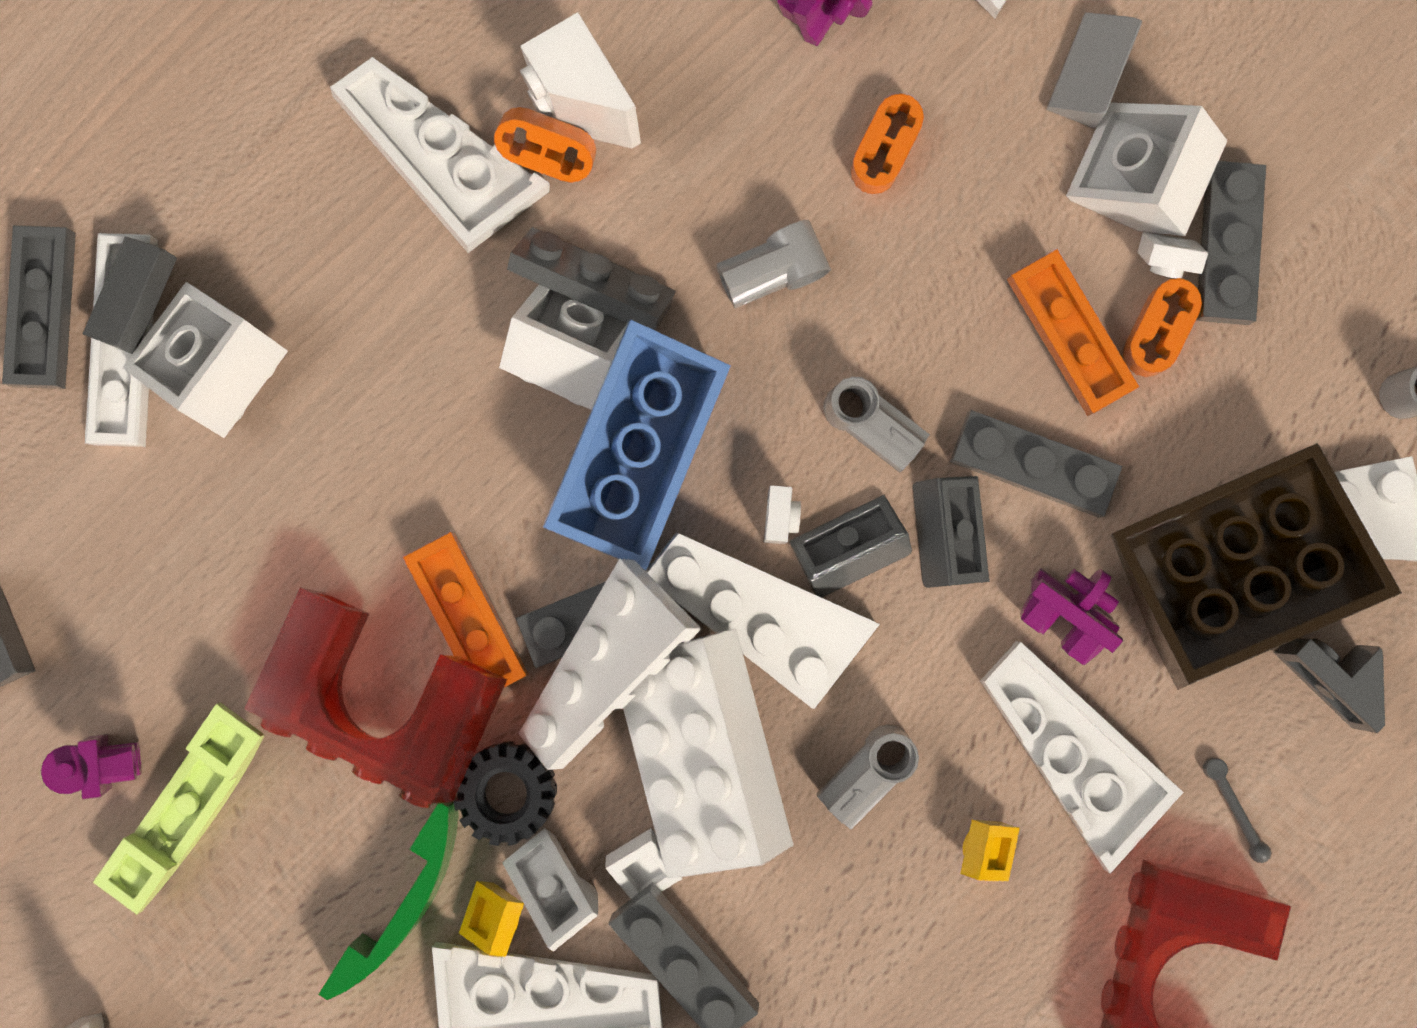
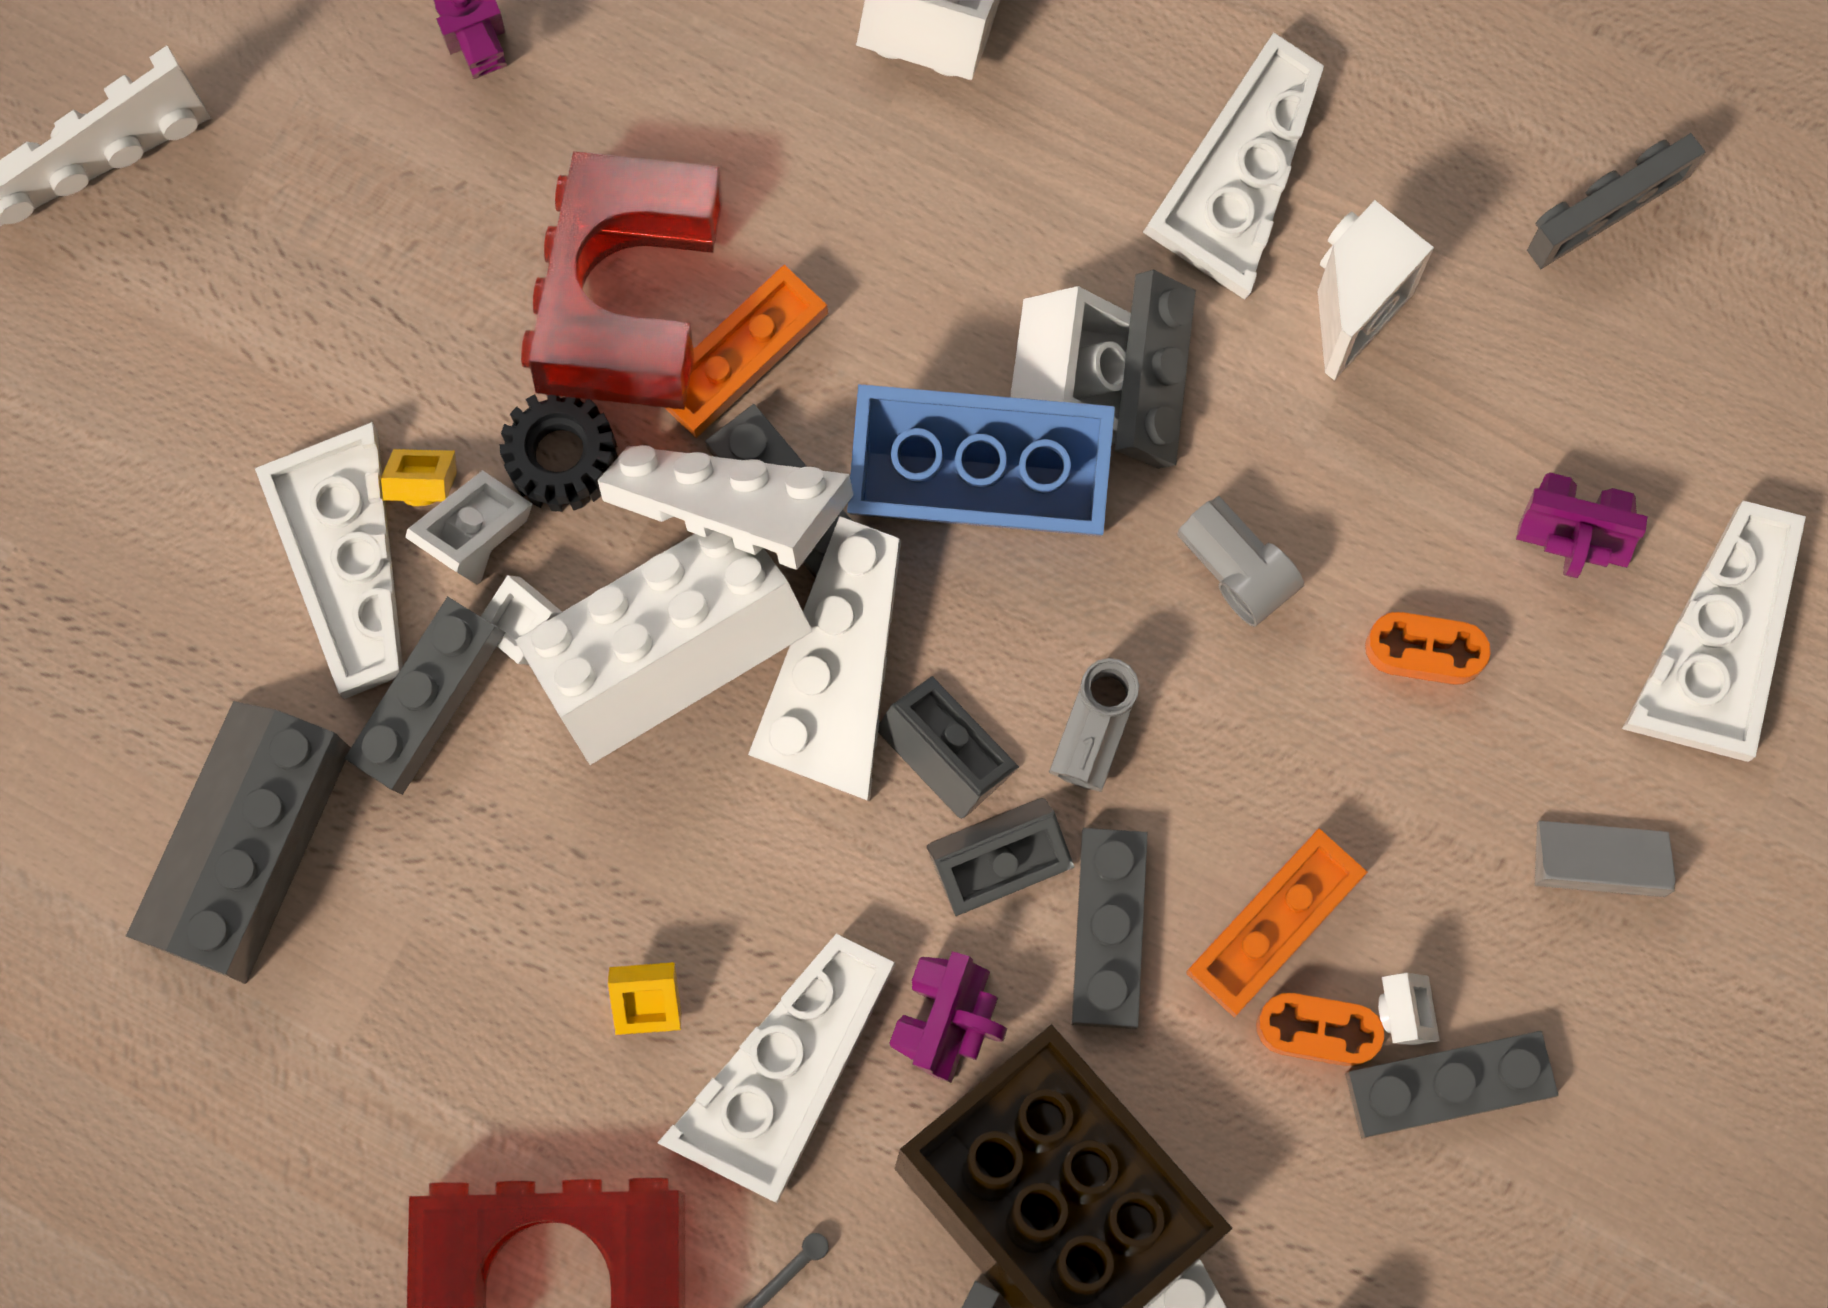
camera: 75 degrees right, 10 degrees down
(183, 810) = (449, 131): yellowish green slope -> none
(364, 954) = (485, 395): green slope -> none
(545, 144) = (1290, 273): orange beam -> none
(781, 515) = (956, 650): white plate -> none
(865, 780) = (688, 835): light grey piece -> none
(1149, 166) = (1505, 953): white slope -> none

